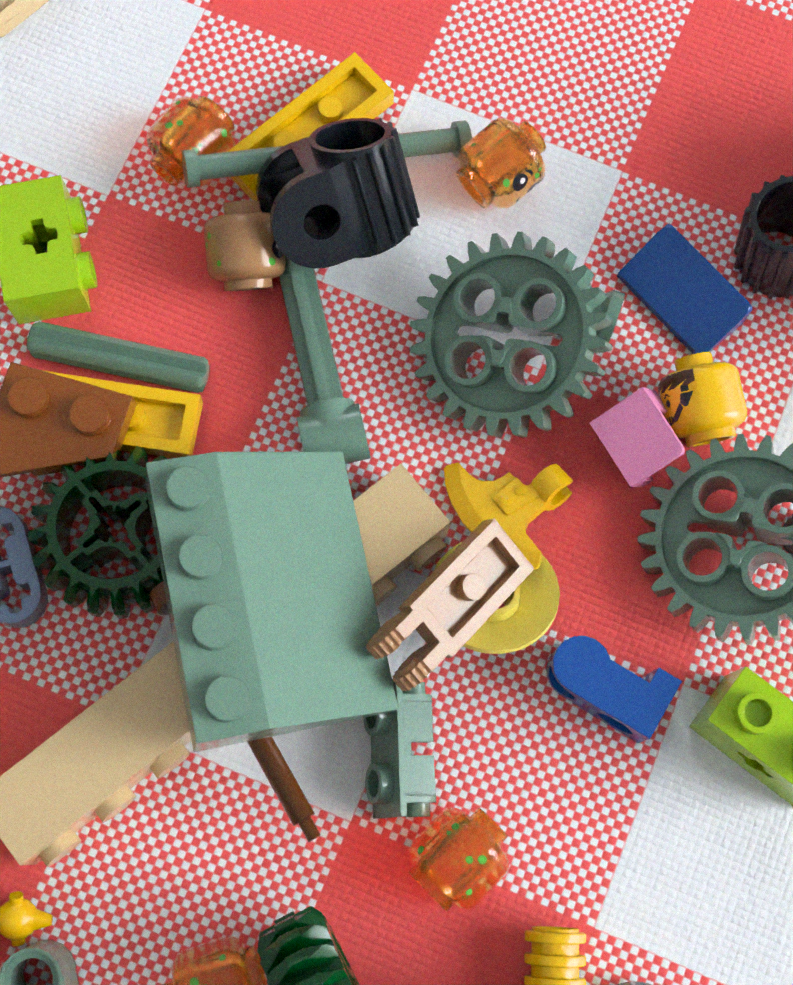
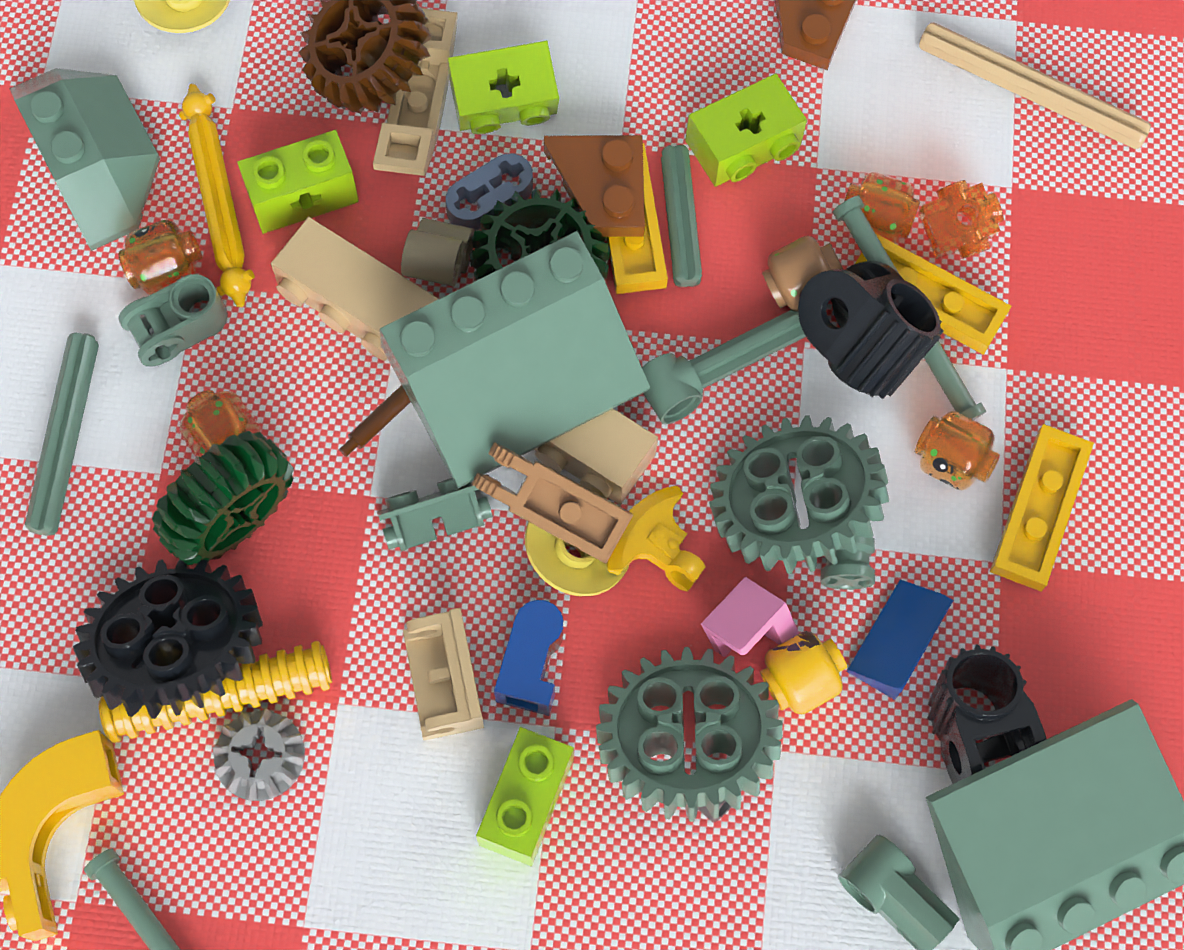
camera: 75 degrees right, 5 degrees down
(76, 648) = (437, 252): none -> dark tan axle
(240, 62) = (948, 233): none -> clear orange brick
(459, 858) = (361, 576): clear orange head -> none
(583, 106) = (1042, 508): none -> yellow plate
(604, 793) = (442, 675): none -> tan hinge

